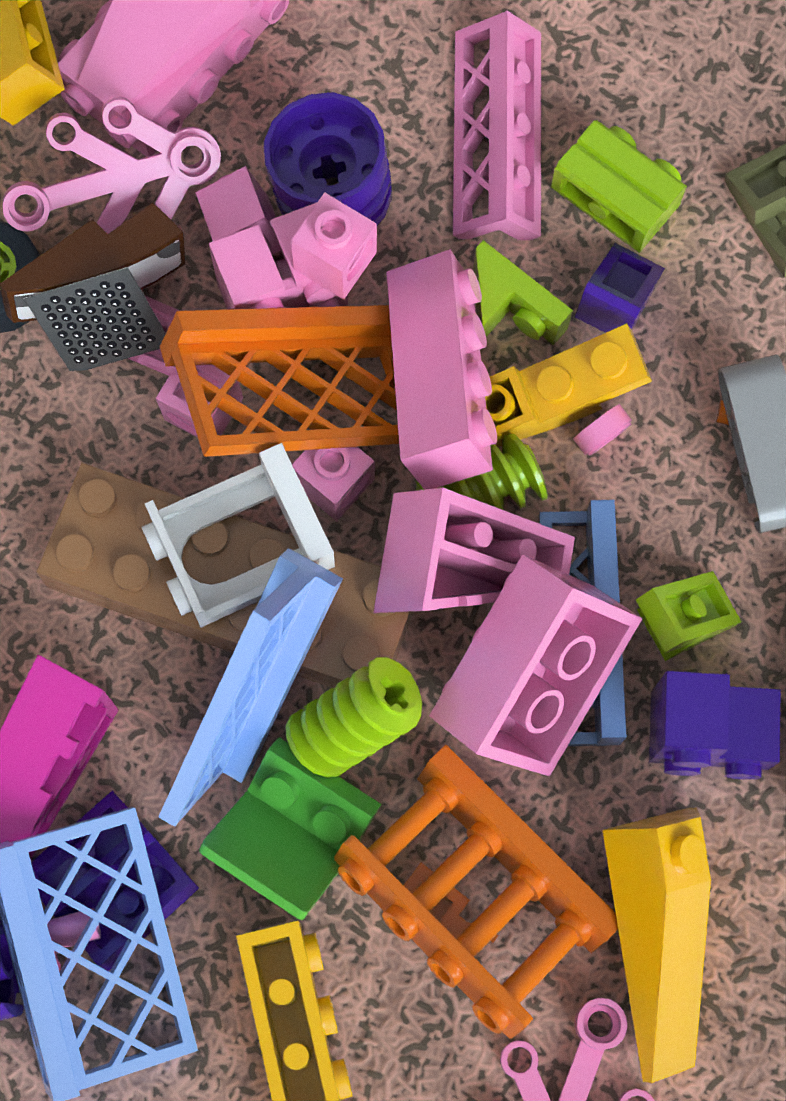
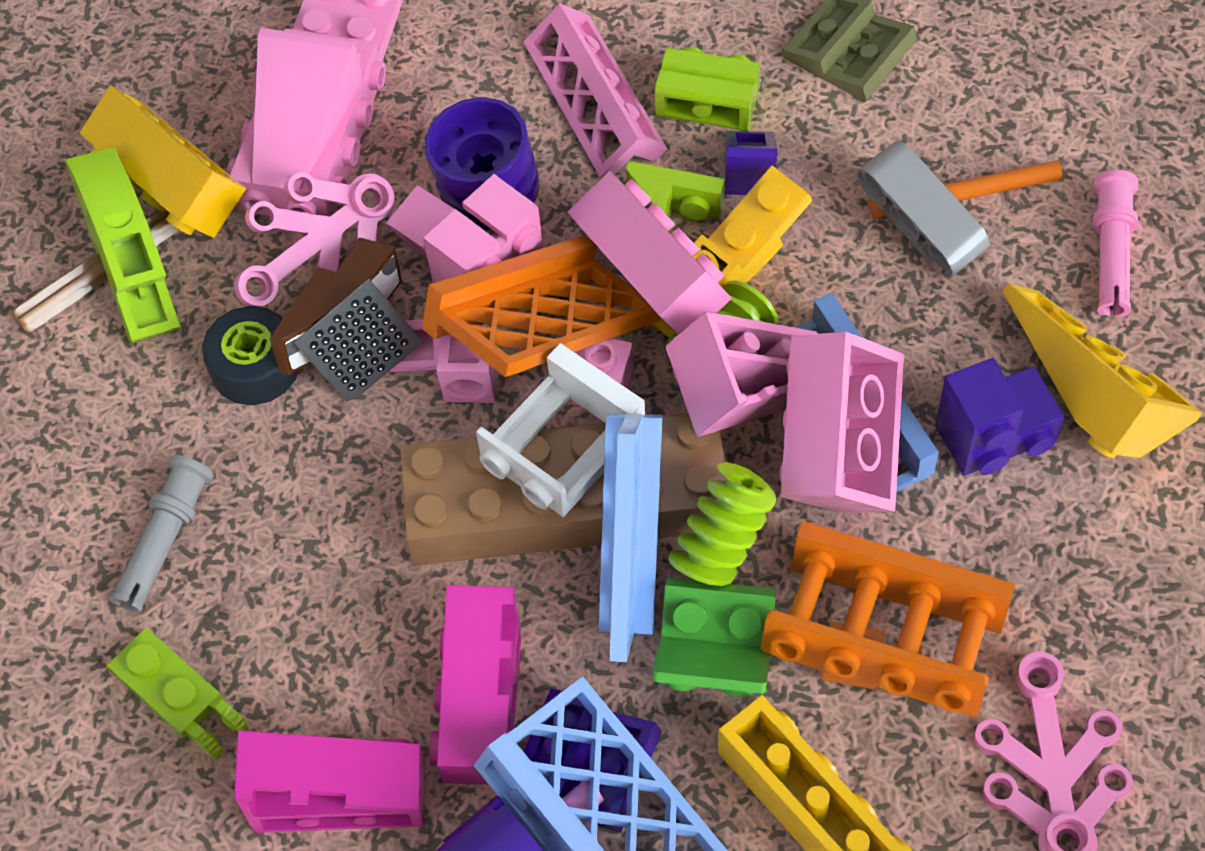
camera: 20 degrees left, 15 degrees down
(334, 245) = (526, 190): bright pink brick -> none
(603, 430) = (793, 256): bright pink tile -> none
(662, 918) = (1041, 561): yellow wedge -> none
(686, 613) = (930, 355): lime slope -> none

